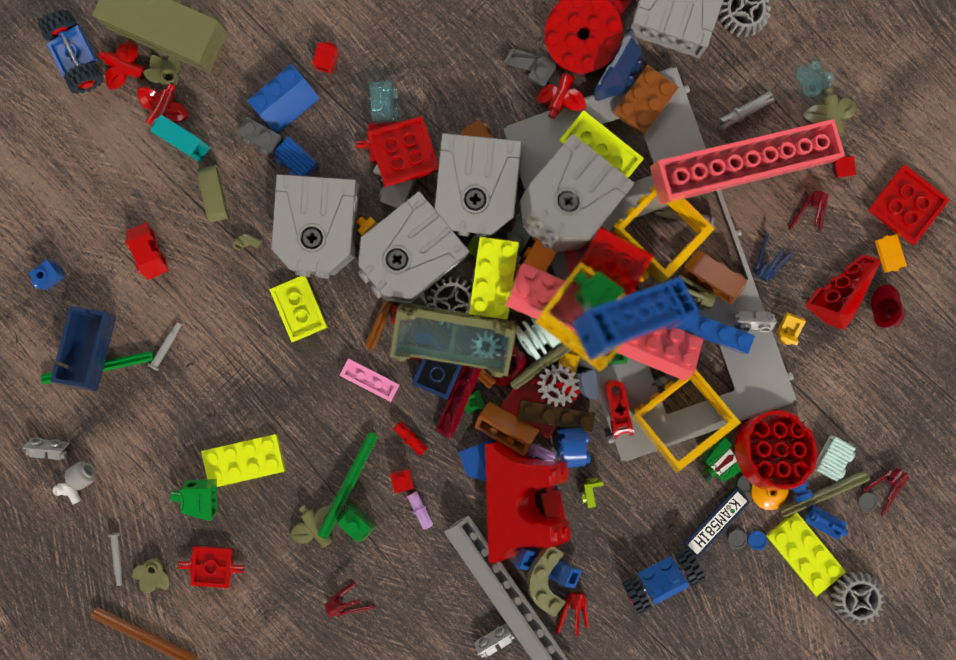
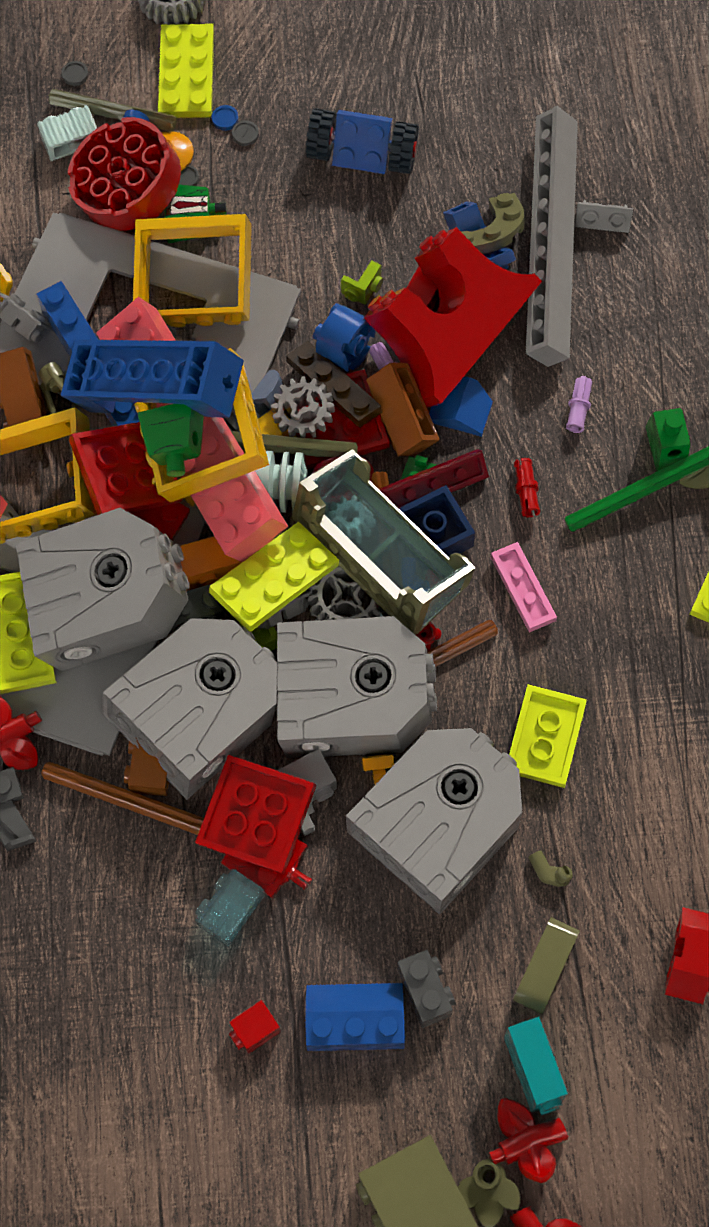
camera: 140 degrees left, 20 degrees down
(295, 158) = (401, 923): blue brick -> none
(402, 480) = (573, 446): red brick -> none
(481, 115) = (122, 797): none -> dark orange axle
(577, 601) = (477, 187): red plant -> none
(621, 418) = (257, 330): red piece -> none
(716, 522) = (252, 162): tile -> none
(826, 523) = (136, 81): blue hinge -> none
(896, 479) = (24, 68): dark red plant -> none

